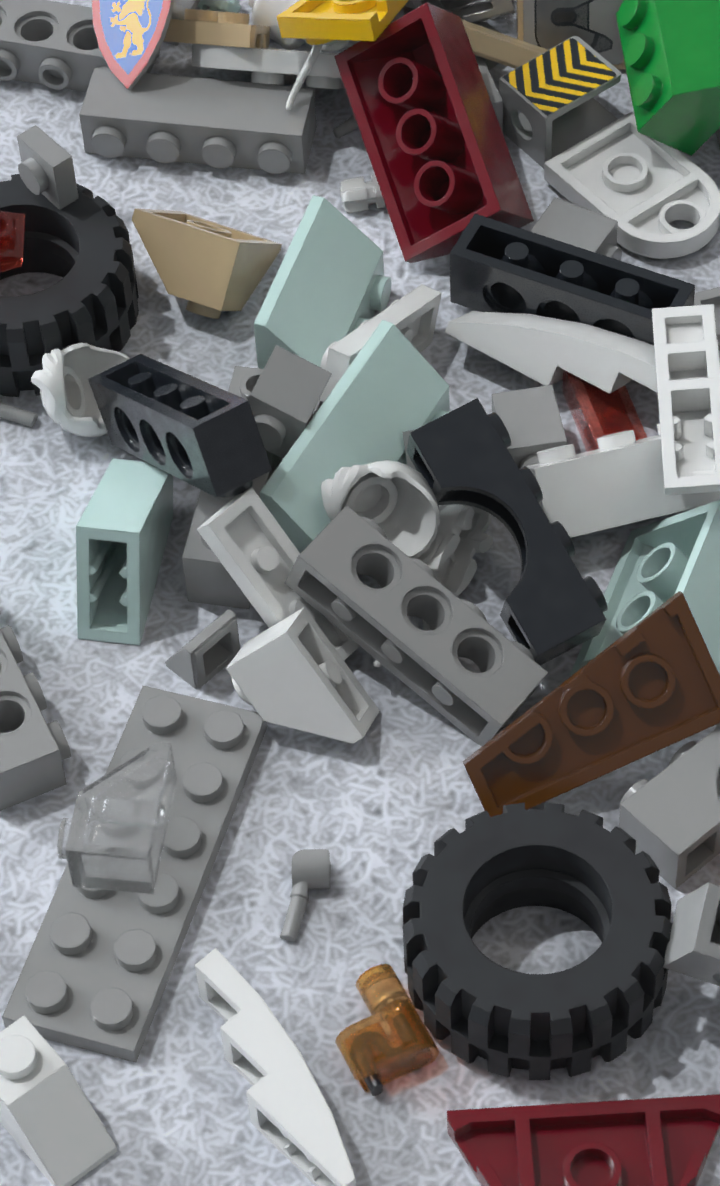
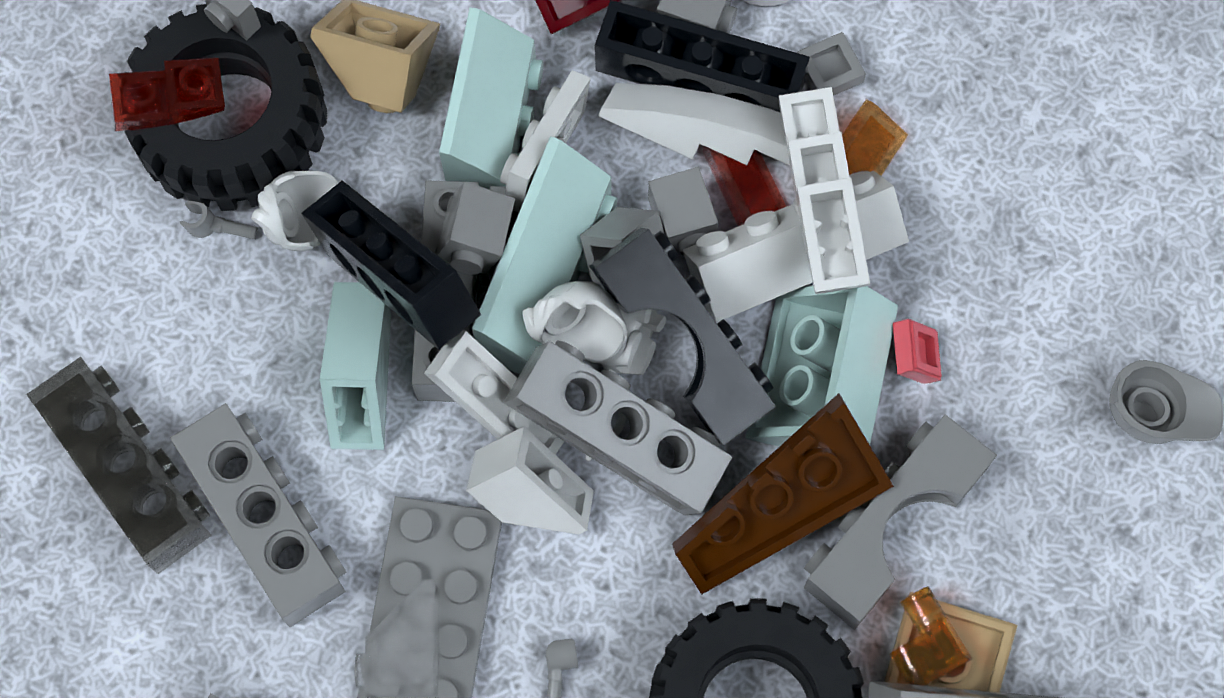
camera: 10 degrees left, 20 degrees up
(207, 651) = (440, 453): light grey slope -> none

